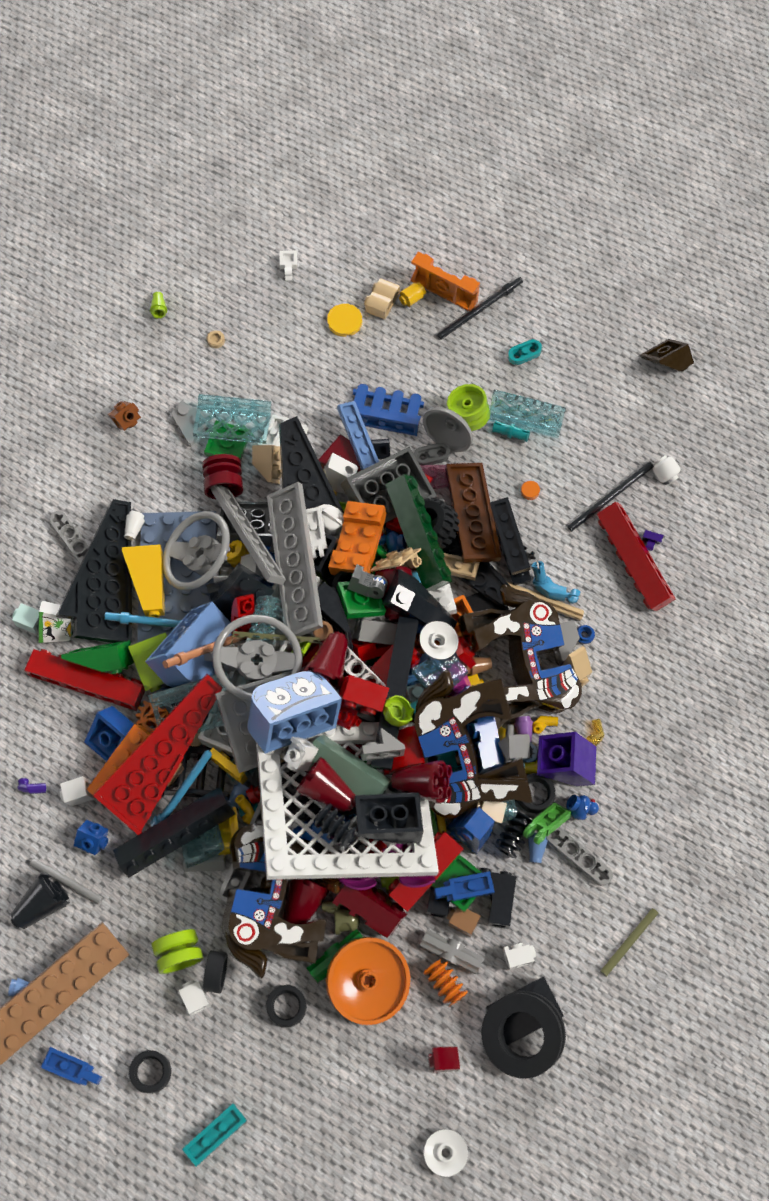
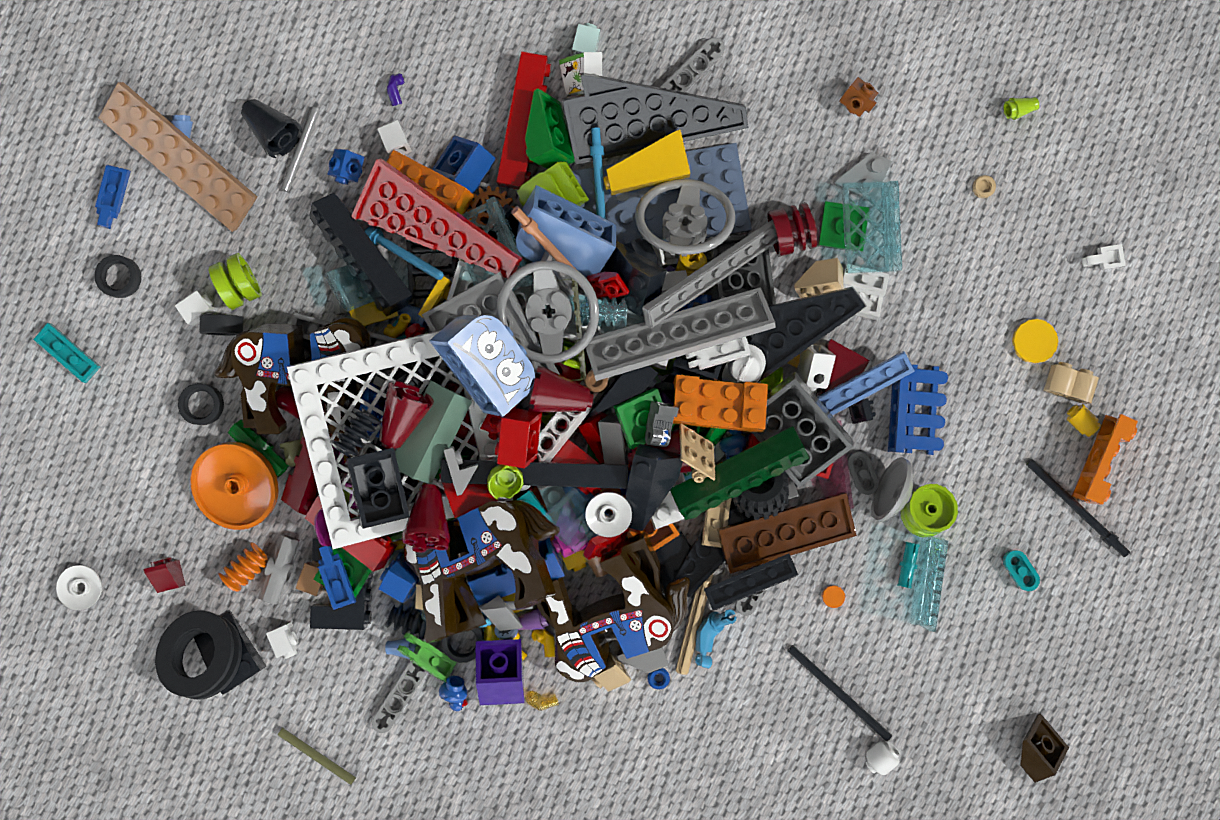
camera: 85 degrees right, 20 degrees up
(134, 522) = (716, 137): white cone -> none
(300, 754) = (432, 376): white brick -> none
(635, 556) = (761, 729): red brick -> none
(652, 538) = (788, 746): dark purple tile -> none

